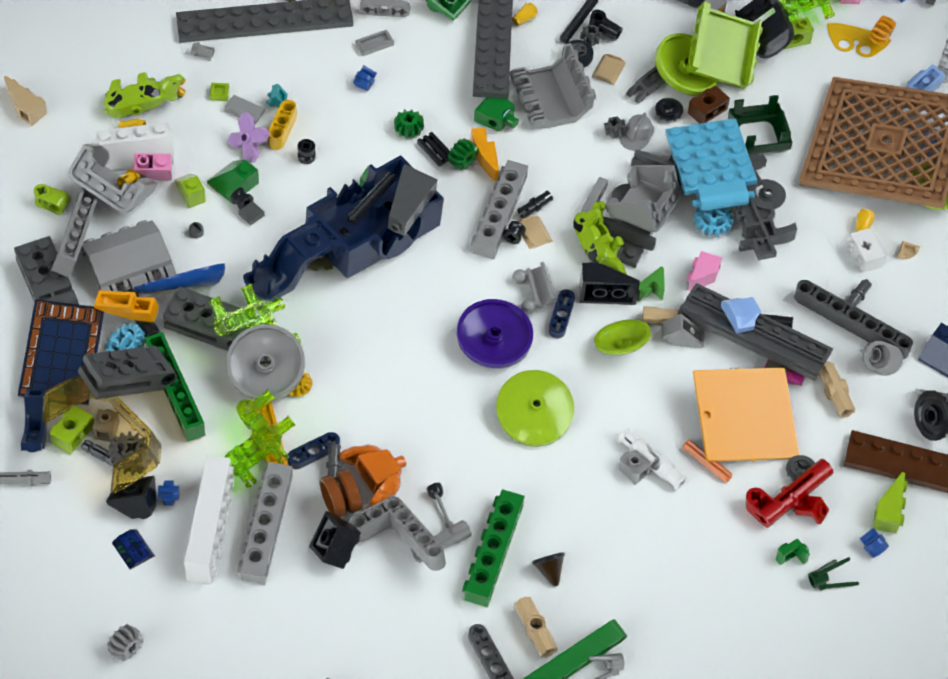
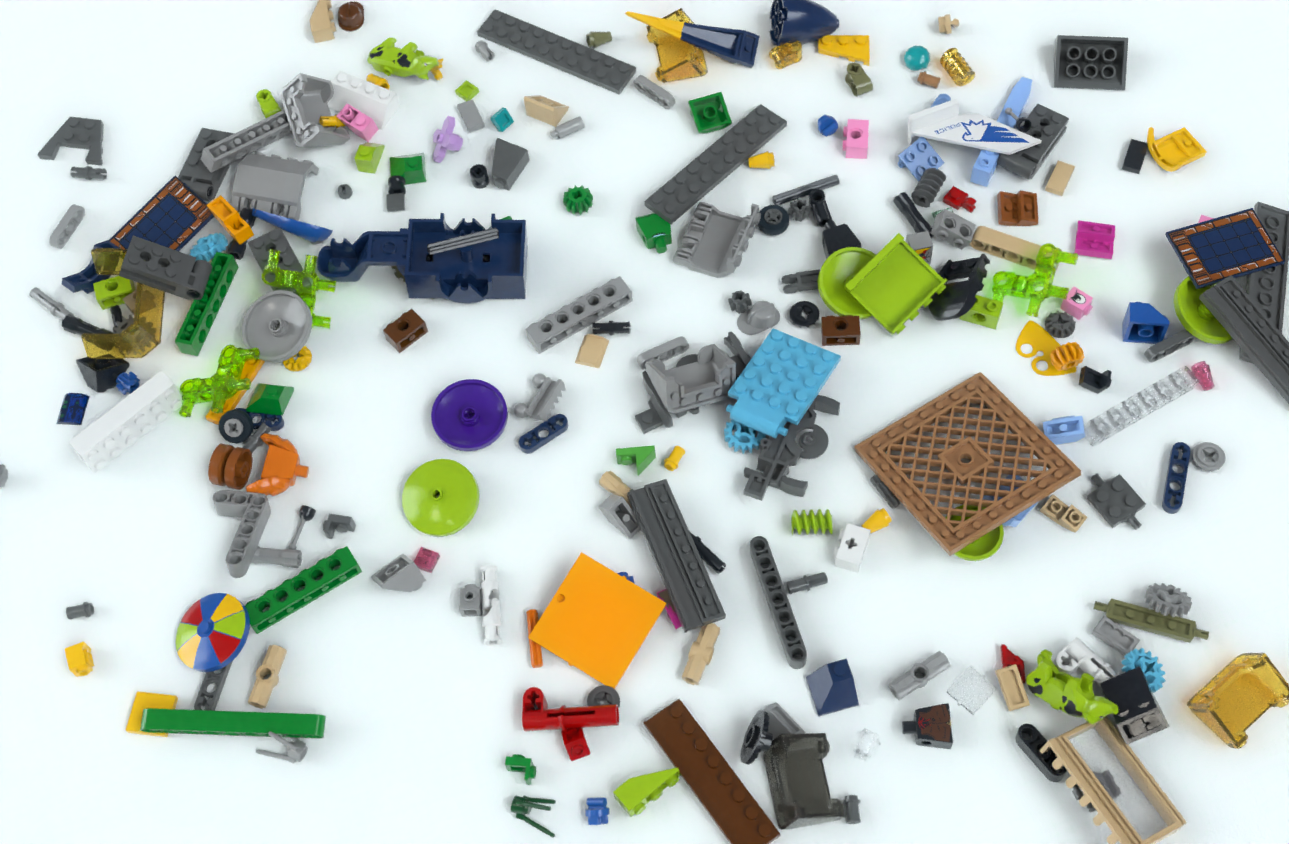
camera: 50 degrees right, 5 degrees up
(43, 85) = (351, 16): none -> reddish brown piece
(66, 479) = (78, 326): none -> black axle
(258, 571) = (159, 461): light grey brick -> none
(282, 124) = (481, 144): yellow beam -> none
(300, 461) = (242, 426): none -> black wheel
(307, 70) = (545, 109): none -> tan slope
(313, 426) = (270, 399): none -> green slope
(319, 127) = (508, 163): none -> dark grey slope
(334, 540) = (192, 501): black slope -> none
(341, 73) = (568, 128): none -> light grey cylinder
(364, 78) = (581, 142): blue piece -> none
(370, 314) = (414, 326): none -> reddish brown brick
(374, 42) = (620, 117): light grey tile -> none
(410, 199) = (487, 260): dark grey slope -> none
(438, 147) = (581, 221): black tile -> none
(458, 625) = (212, 632): none -> dish
(462, 154) = (591, 249): green gear -> none
(472, 480) = (338, 522): none -> dark grey bracket
(486, 152) = (615, 257): light orange slope -> none
(514, 232) = (571, 341): black wheel -> none
(550, 567) = (326, 635): dark brown hat -> none
(561, 483) = (400, 575): none -> light grey slope
(566, 462) = (426, 559): none -> clear pink tile
(596, 237) = (623, 393): lime animal -> none
(606, 285) = (587, 428): black slope -> none
(609, 68) = (790, 249): tan piece -> none
(622, 337) = (563, 485): lime dish -> none
(643, 42) = (838, 237): none -> black torso
(680, 272) = (672, 461): none -> yellow pin
(705, 269) = (691, 474): bright pink slope -> none
(741, 313) = (671, 530): light blue slope -> none
(768, 113) = (858, 356): dark green piece -> none
(822, 250) = (811, 521): none -> lime piece
(848, 199) = (885, 492): none -> dark grey axle
(851, 19) = (1055, 329): none -> dark grey gear
(882, 357) = (766, 653): light grey piece -> none
(907, 250) = (894, 573): tan tile -> none
(913, 38) = (1094, 380): none -> black bracket

